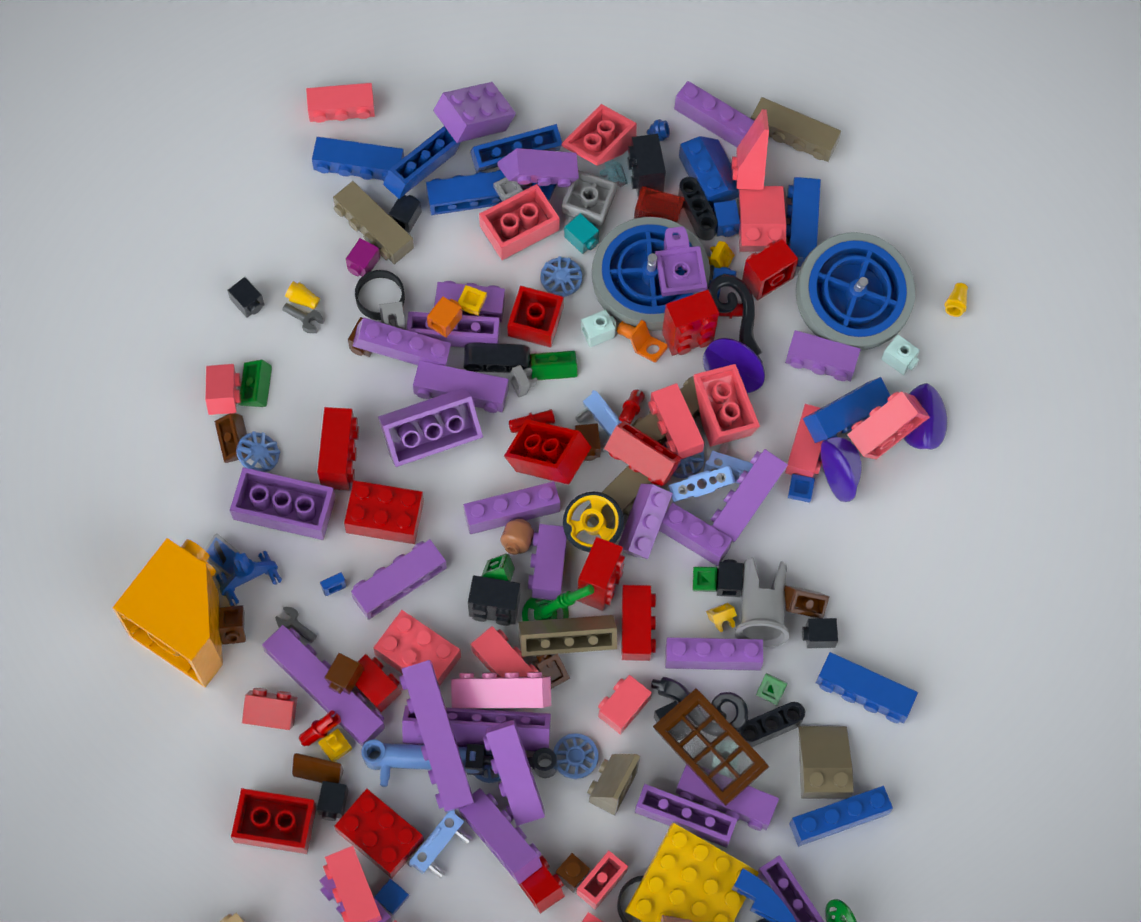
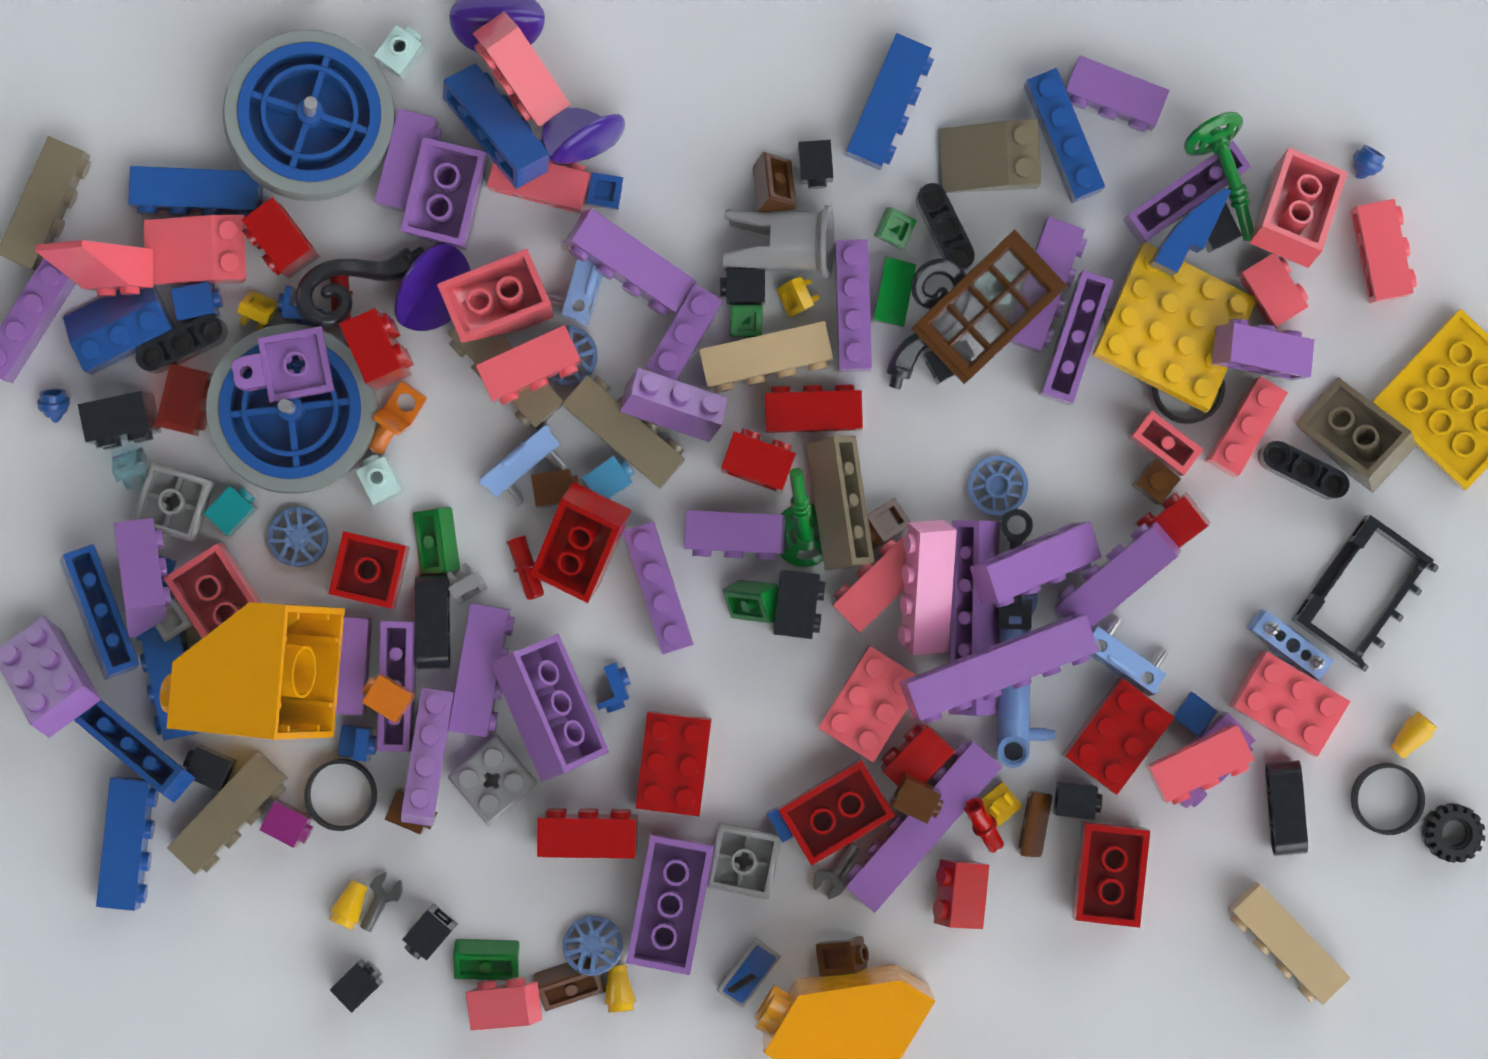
camera: 90 degrees left, 20 degrees up
(223, 469) = (619, 990): none -> yellow cone
(245, 571) = (771, 944): blue axle -> none
(278, 341) = (428, 932): none -> black brick
(300, 546) = (756, 878): none -> light grey brick
(339, 620) = (836, 812): none -> red brick
(340, 102) = (32, 876): coral brick -> none
(382, 378) = (471, 779): none -> light grey brick
(392, 314) = (384, 771): light grey hinge -> none
(398, 579) = (768, 736): medium lavender brick -> none
(414, 303) = (357, 742): none -> blue bracket
(442, 478) = (618, 680): none -> blue bracket
(466, 233) = (260, 675): none -> light orange slope
(472, 300) = (358, 661): yellow tile -> none
(517, 536) = (699, 578): nougat head -> none
(592, 477) = (609, 477): none -> dark azure brick
(598, 501) = (701, 453): yellow wheel -> none
(601, 136) = (79, 488): coral slope -> none
(614, 781) = (1039, 433): dark tan slope -> none
(624, 703) = (927, 424): coral brick -> none
(631, 406) = (502, 429): red axle -> none
(642, 453) = (581, 409): brick -> none
(678, 591) = (766, 355): none -> tan brick
(716, 682) = (894, 292): none -> green slope
(722, 478) = (605, 298): light blue piece -> none
(799, 376) = (444, 193): none -> medium lavender slope
(872, 857) = (1116, 94): none -> medium lavender brick

